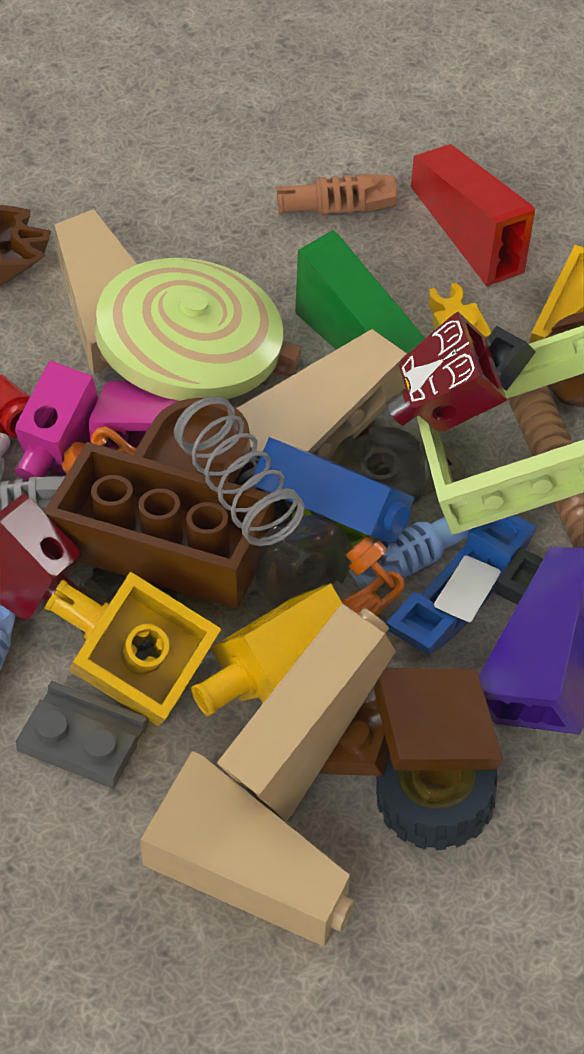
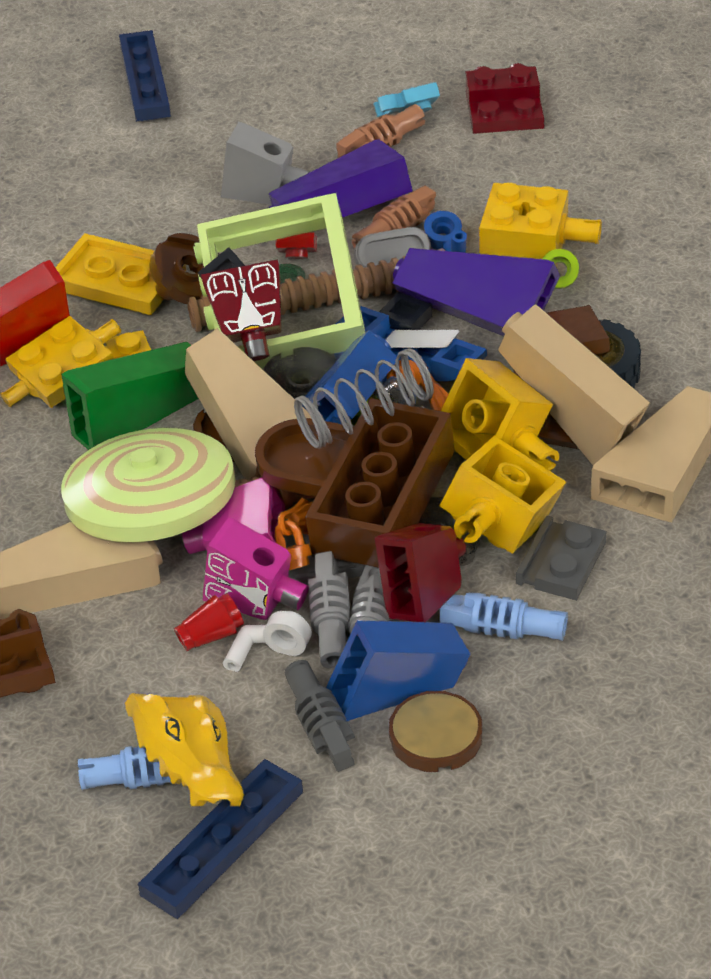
camera: 85 degrees left, 10 degrees down
(428, 265) = (53, 353): none -> yellow plate

